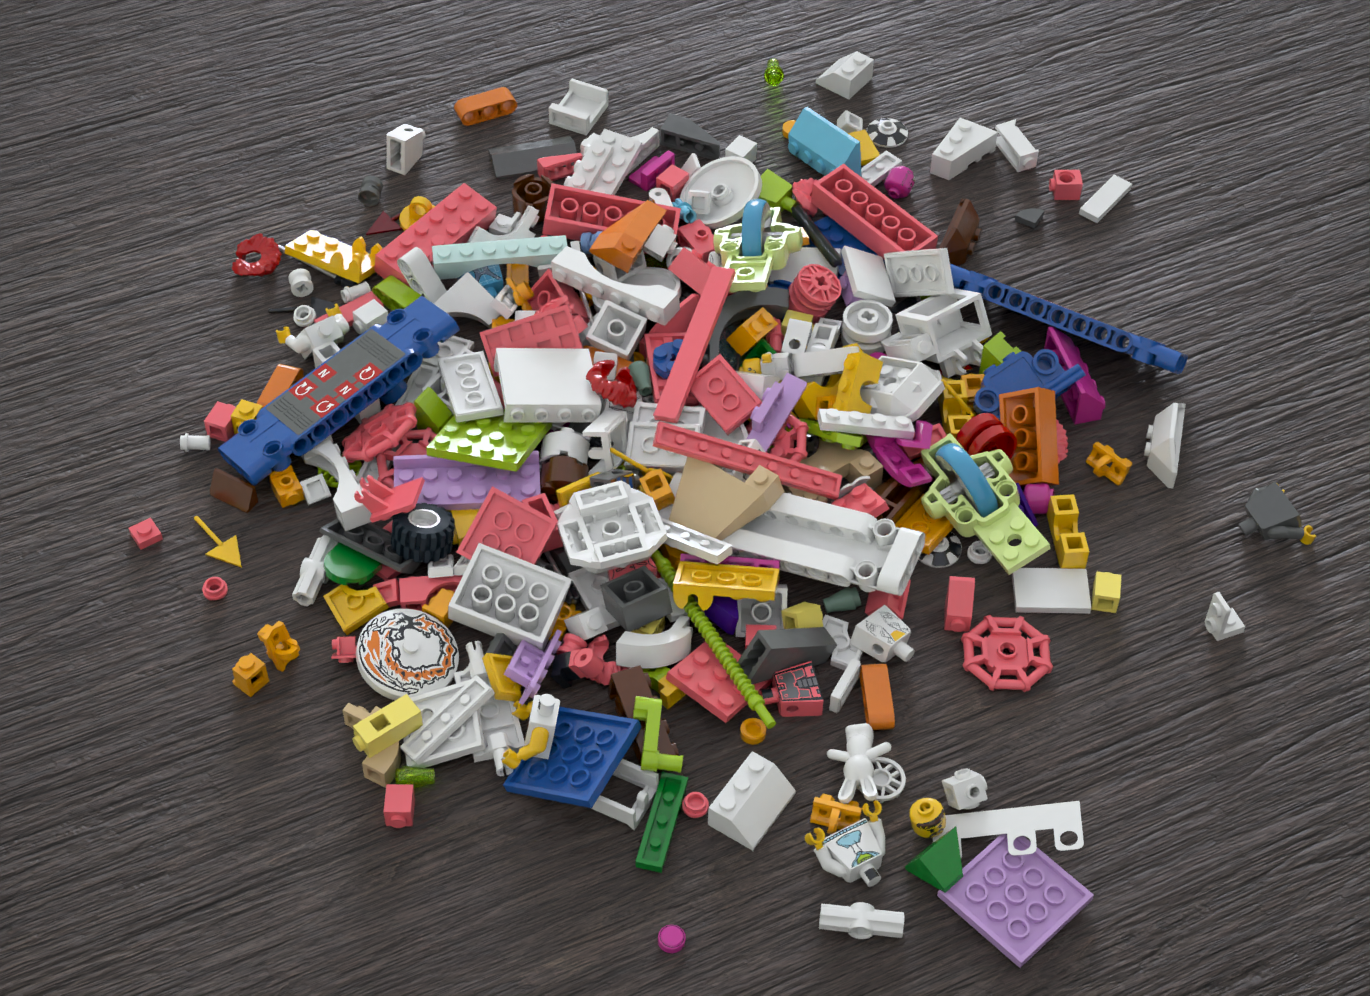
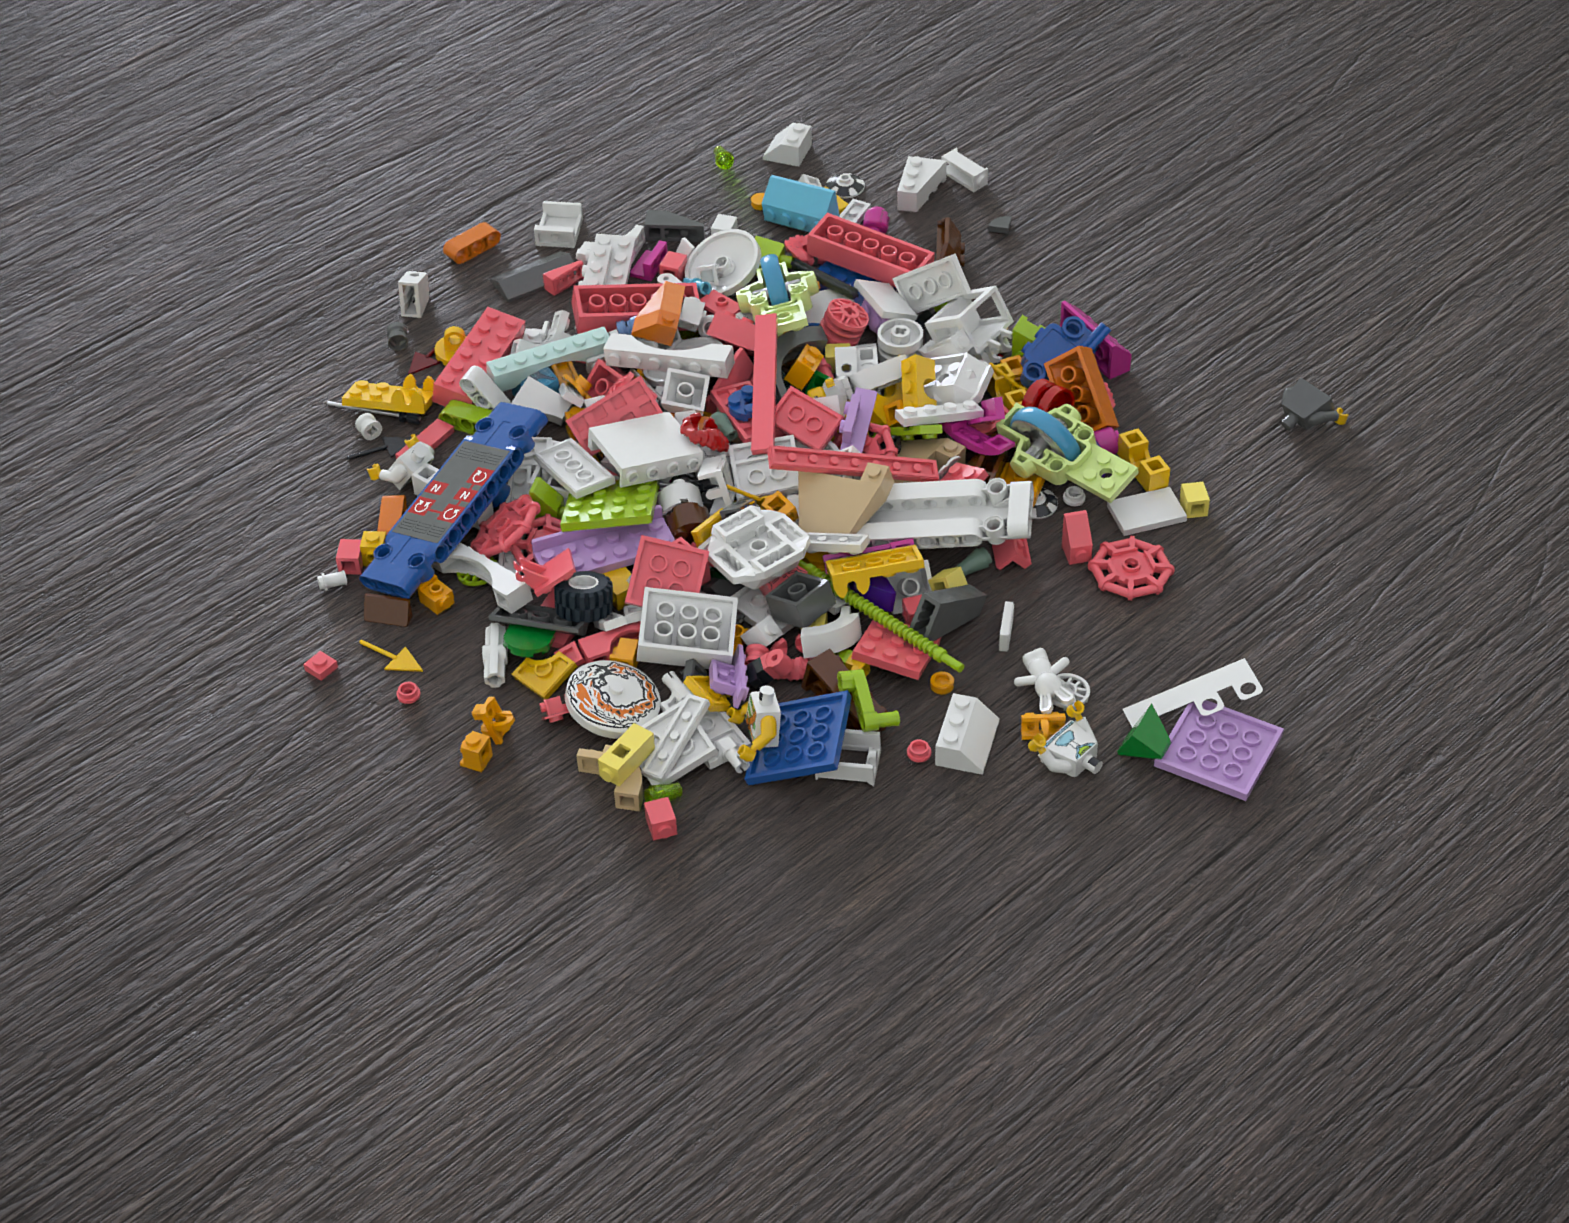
camera: 15 degrees left, 5 degrees down
(269, 259) = (327, 406): red piece -> none
(304, 315) = (384, 453): white plate -> none
(315, 489) = (463, 590): white tile -> none
(355, 292) = (422, 423): white pin -> none
(369, 315) = (447, 439): white brick -> none
(531, 192) = (551, 300): reddish brown brick -> none
(661, 822) = (896, 771): green plate -> none
(671, 938) = (944, 858): dark pink piece -> none
(795, 691) = (968, 641): torso -> none
(844, 650) = (994, 602): white tile -> none
(861, 920) = (1100, 800): white piece -> none
(877, 696) = (1037, 627): orange beam -> none
(883, 636) = (1023, 579): white torso -> none
(927, 817) = (1122, 707): yellow head -> none
(965, 789) = (1143, 678): white brick -> none
(1031, 305) = (1148, 301): blue panel -> none
(1066, 184) = (1022, 191): coral brick -> none
(1103, 455) = (1145, 396): light orange hips -> none
(1105, 198) = (1059, 196): white tile -> none
(1165, 443) = (1194, 374): white wedge -> none
(1222, 619) = (1297, 495): white bracket -> none

